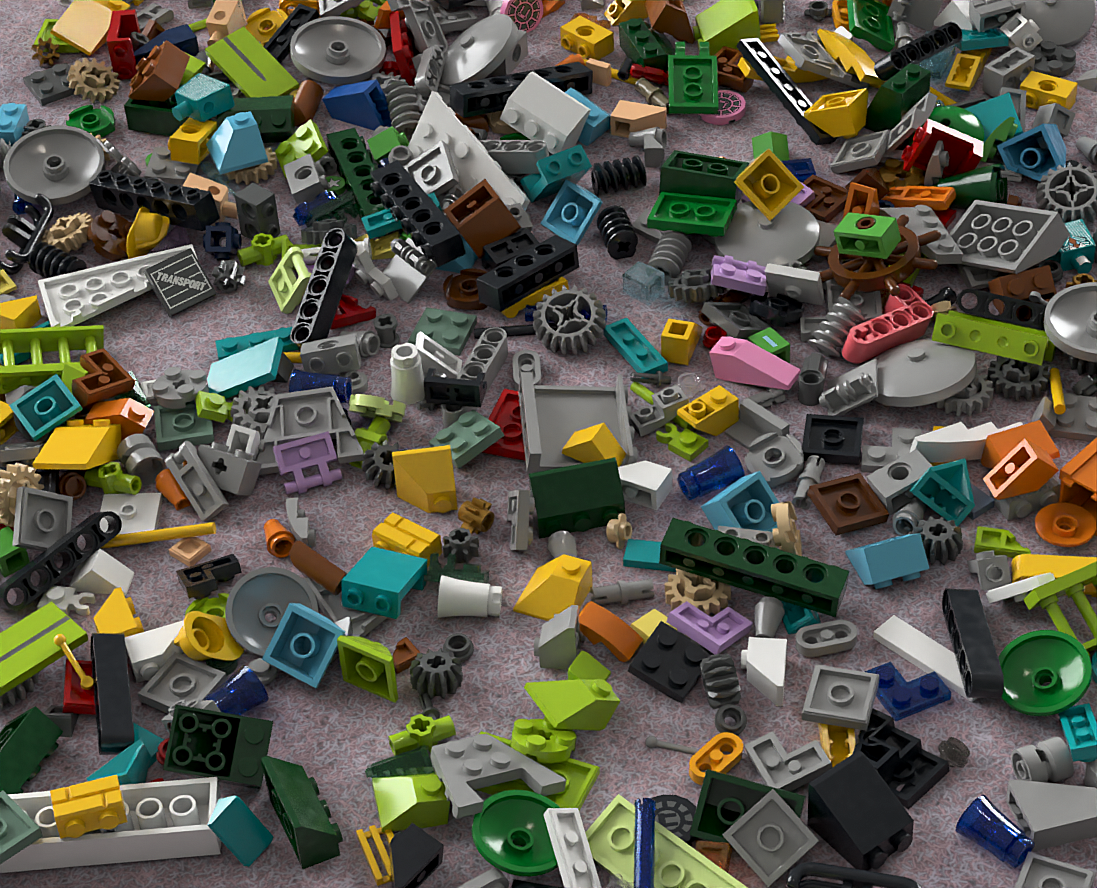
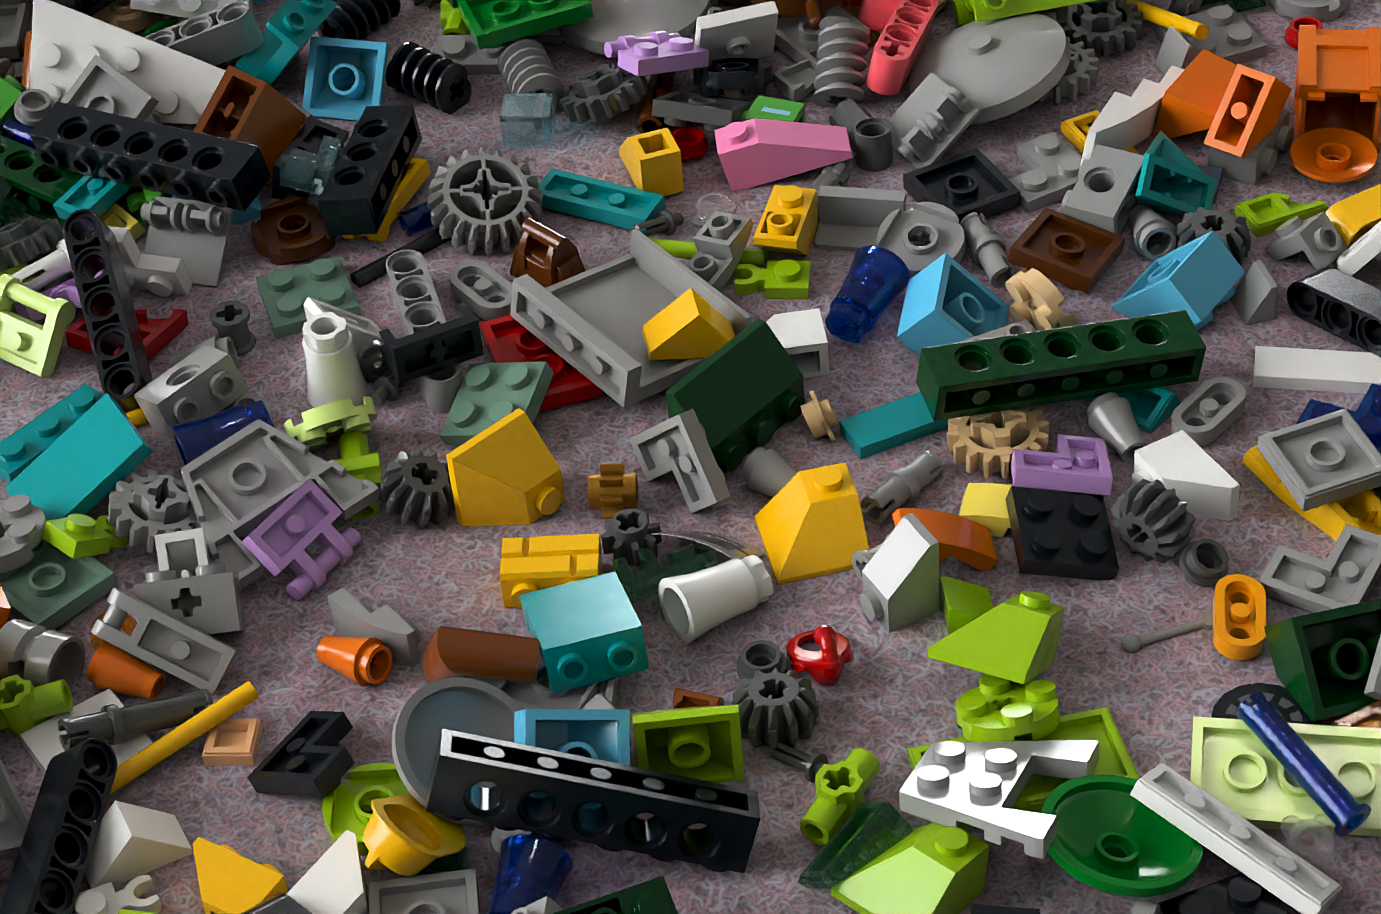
camera: 35 degrees left, 0 degrees up
(149, 513) = (117, 723): none -> dark grey pin
(289, 668) = (575, 780): none -> black brick
(486, 664) = (822, 665): none -> red piece
(495, 254) = (310, 170): none -> clear light blue panel
(495, 571) = (729, 546): none -> sticker
(569, 366) = (545, 255): none -> reddish brown piece
(927, 587) = (1256, 295): none -> light grey slope

